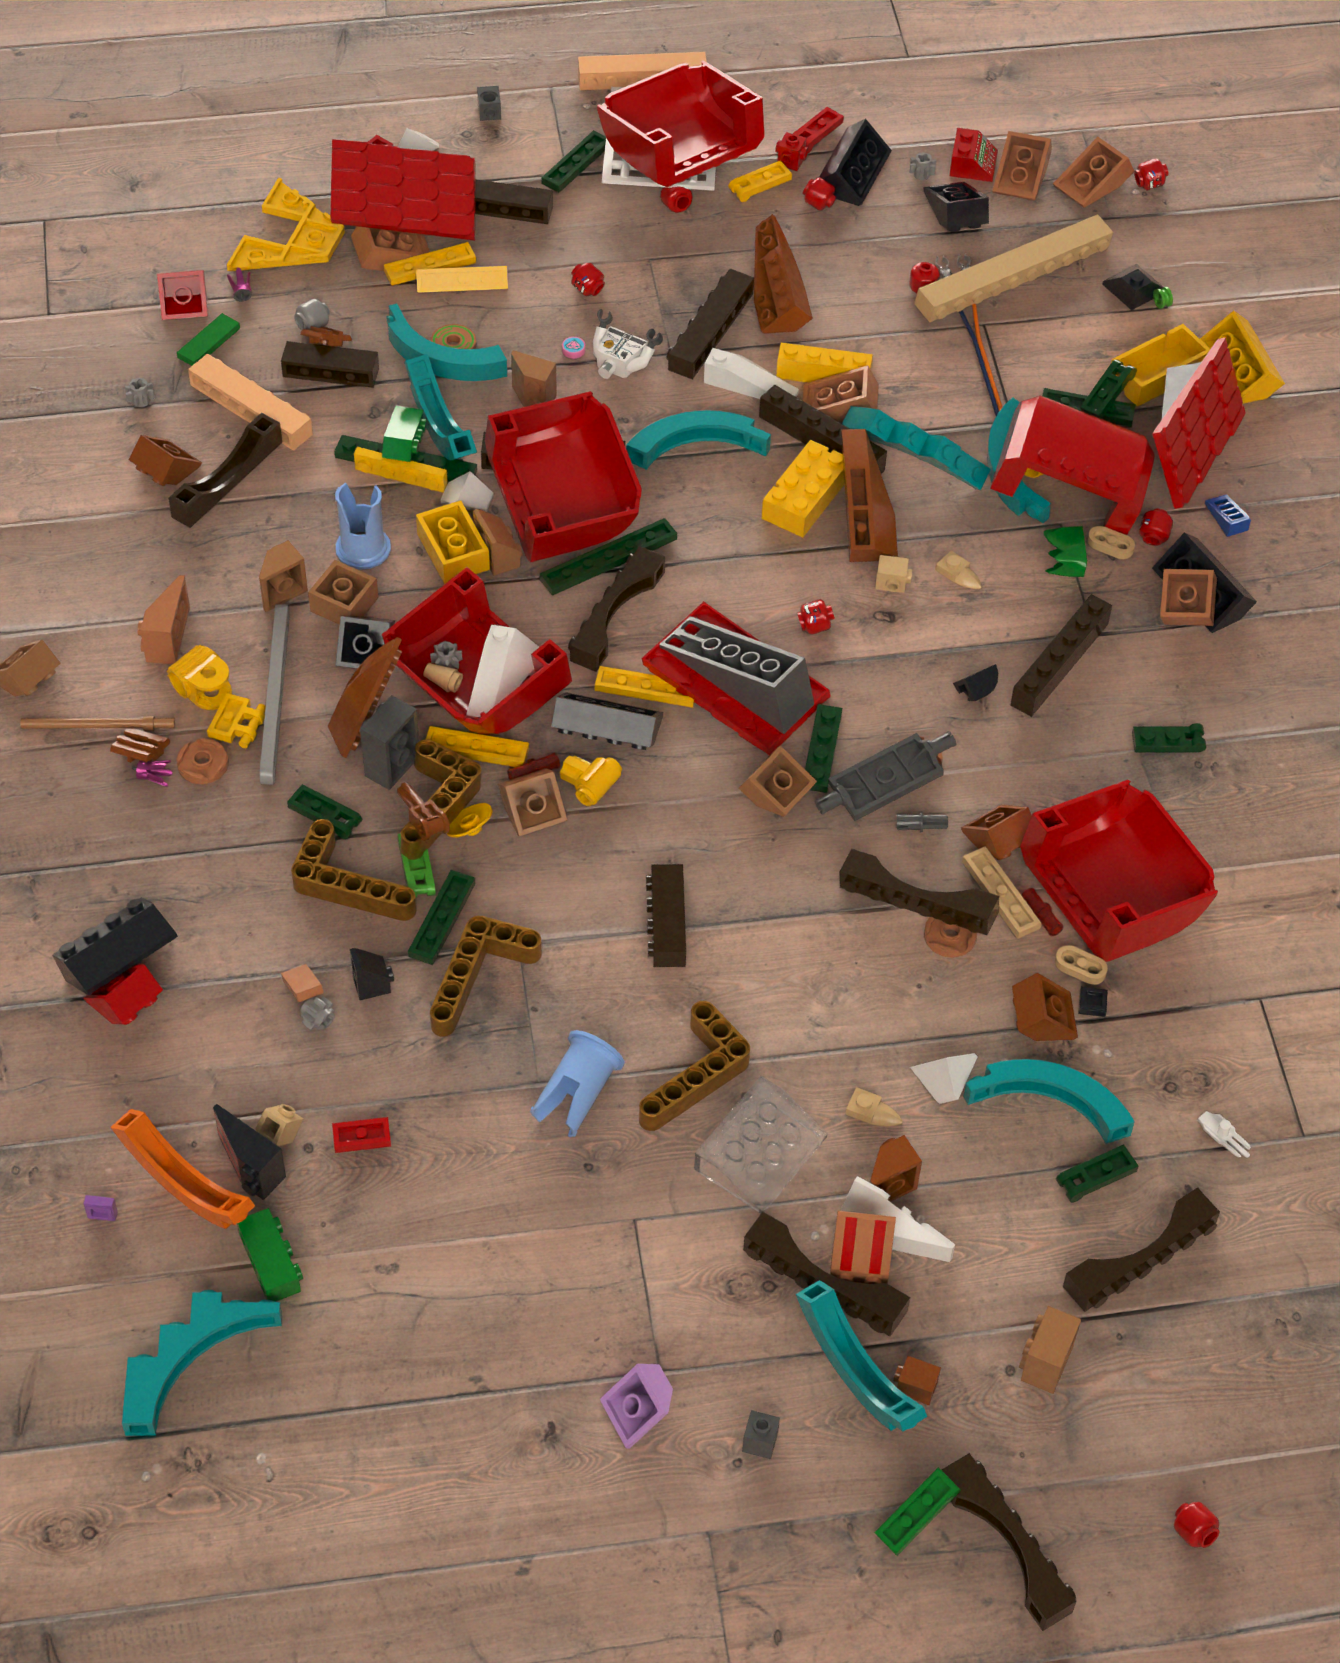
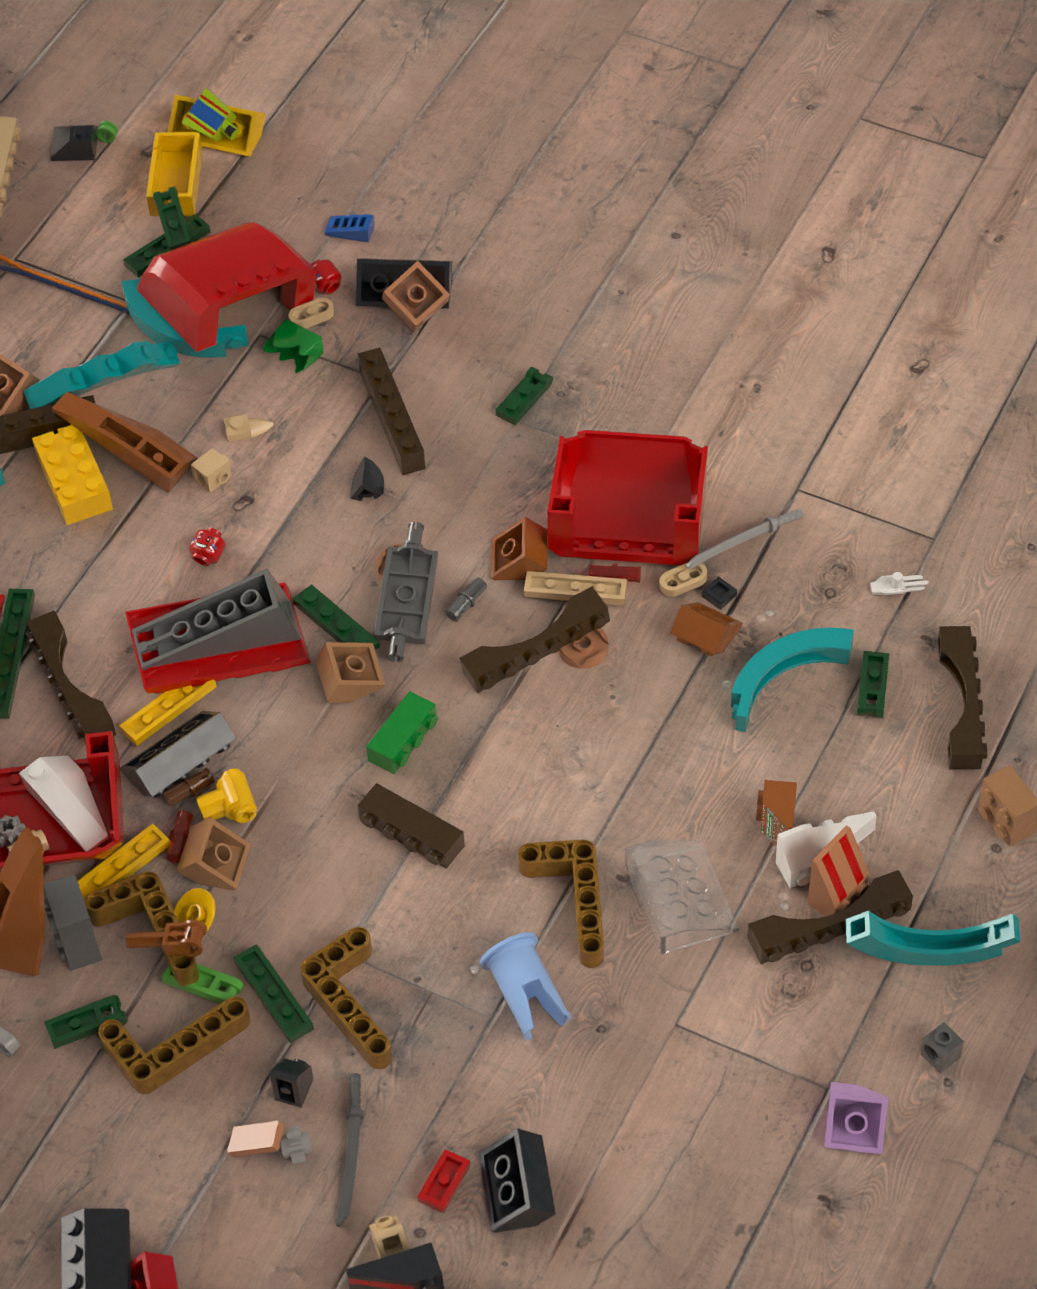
camera: 50 degrees left, 0 degrees up
(375, 1038) = (354, 1116): none -> dark grey sword
(397, 1187) = (516, 1182): none -> black slope
(582, 746) = (188, 787): none -> reddish brown axle
(751, 855) = (402, 732): none -> green brick
(870, 1109) = (701, 798): tan plate -> none
(917, 1379) = (968, 910): dark orange brick -> none
(945, 1076) = (714, 728): white slope -> none
(1195, 996) = (770, 524): none -> light grey sword
(1197, 420) = (247, 179): red piece -> none
(1242, 344) = (211, 117): none -> torso

